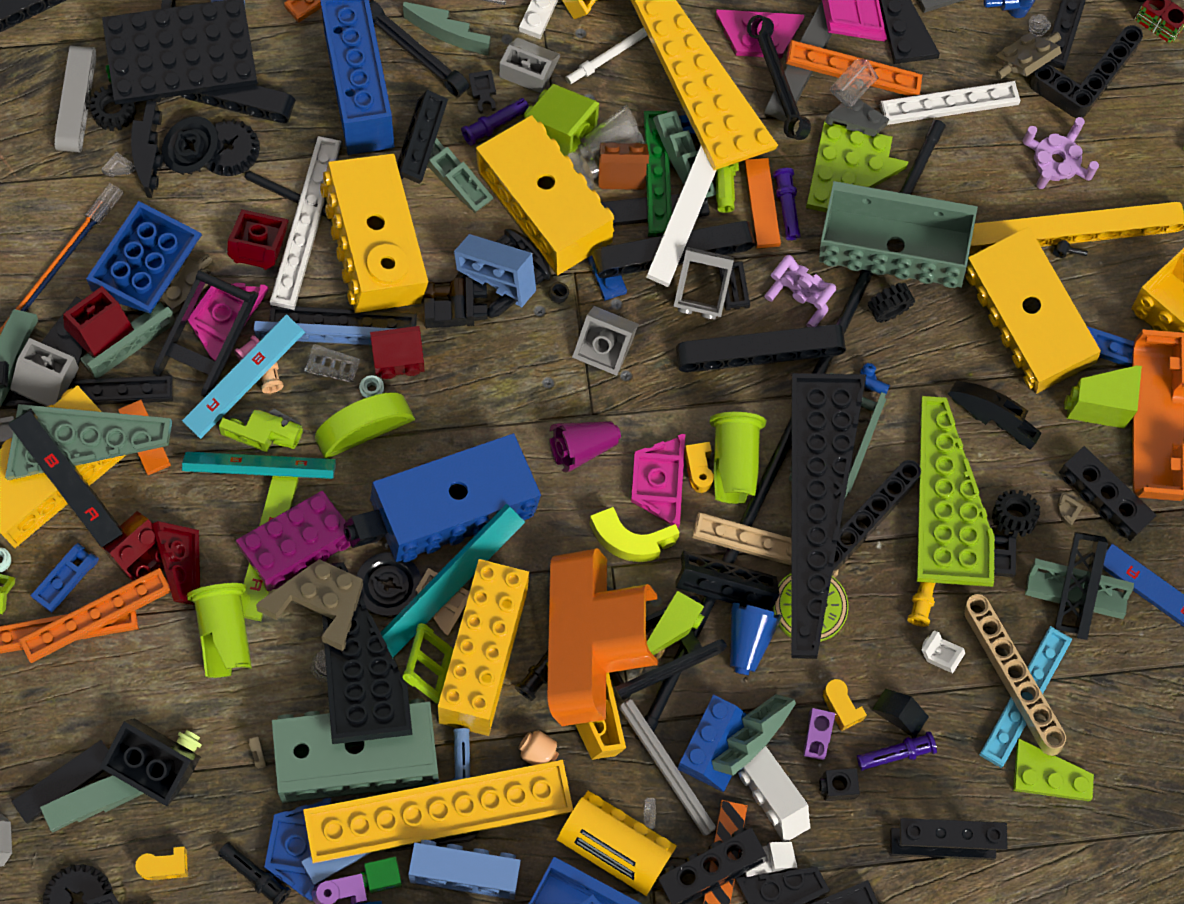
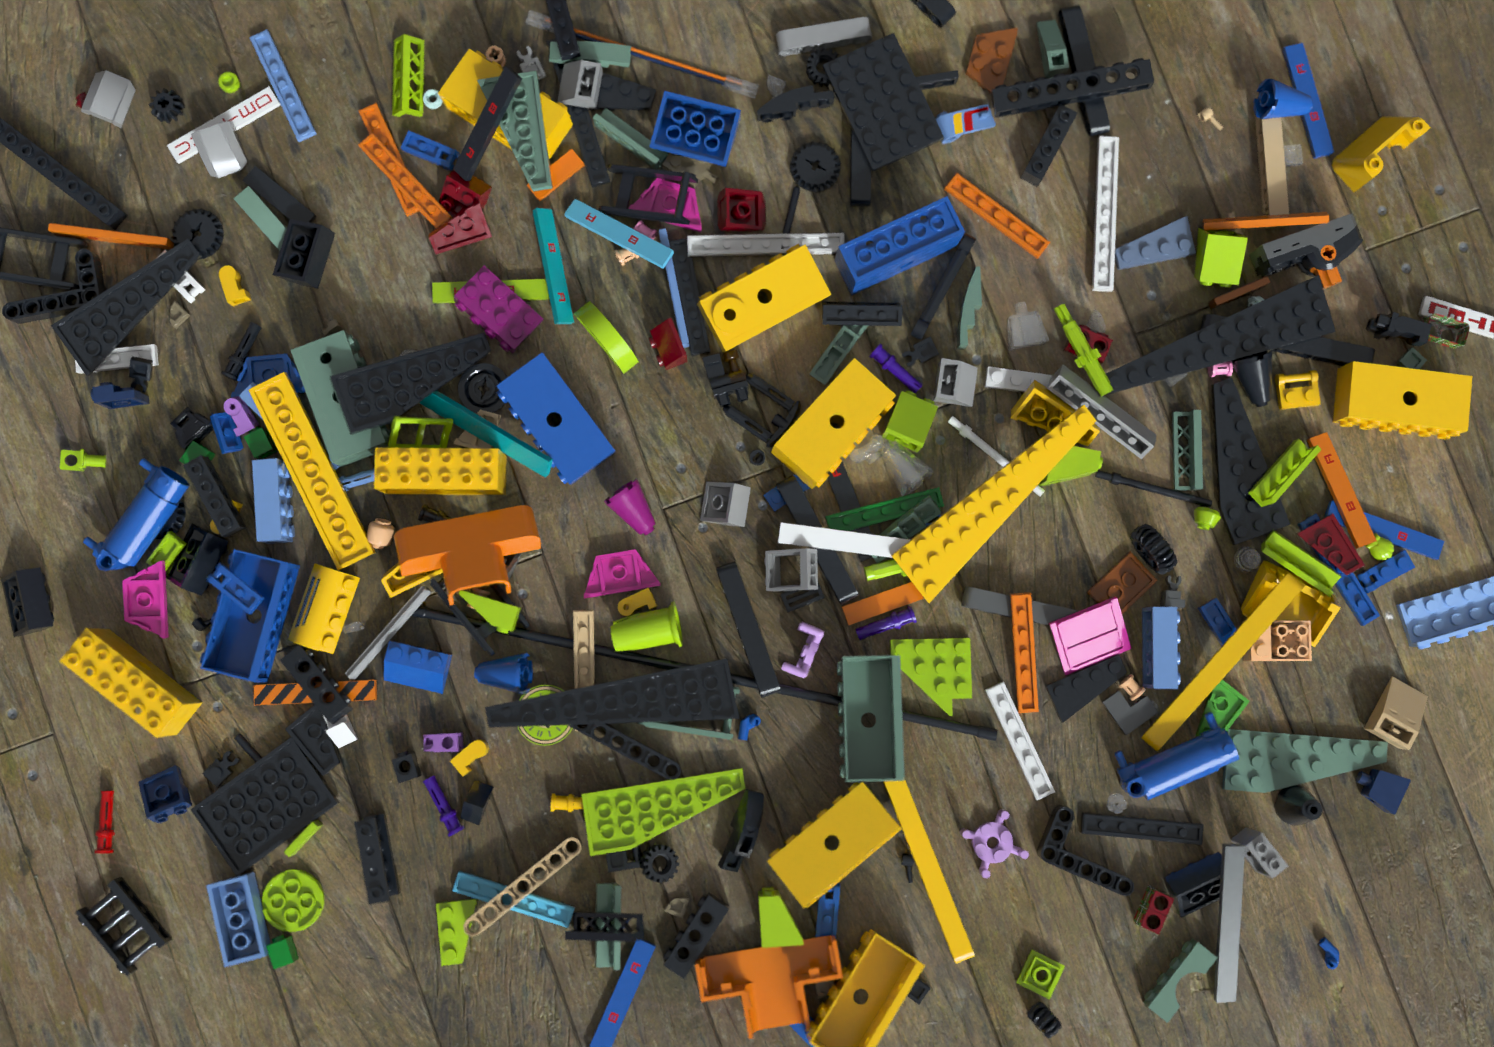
camera: 75 degrees right, 15 degrees up
(97, 322) = (631, 111): dark red slope -> none
(177, 152) = (805, 125): black gear -> none
(189, 740) = (327, 276): yellowish green plate -> none
(221, 628) = (412, 275): lime piece -> none
(264, 429) = (583, 262): lime plate -> none
(323, 591) = (459, 342): dark tan wing -> none
(325, 353) = (651, 281): clear slope -> none
(365, 528) = (513, 356): black brick -> none
(368, 381) = (639, 327): light aqua plate -> none
(499, 266) = (758, 402): medium blue wedge -> none
(623, 165) = (879, 480): dark orange bracket -> none
(628, 545) = (558, 557): neon yellow arch -> none
(727, 585) = (537, 631): black fence -> none
(744, 45) = (1041, 566): dark pink wing -> none
(758, 730) = (424, 692): sand green slope -> none
(776, 795) = (386, 717): white wedge -> none
(778, 77) = (995, 590): black piece -> none
(854, 82) = (1008, 654): clear slope -> none
(859, 118) = (981, 665): dark grey wing -> none
(891, 302) = (815, 726): black tyre -> none
(941, 652) = (530, 826): white bracket -> none
(1027, 54) = (1080, 798): dark tan plate -> none

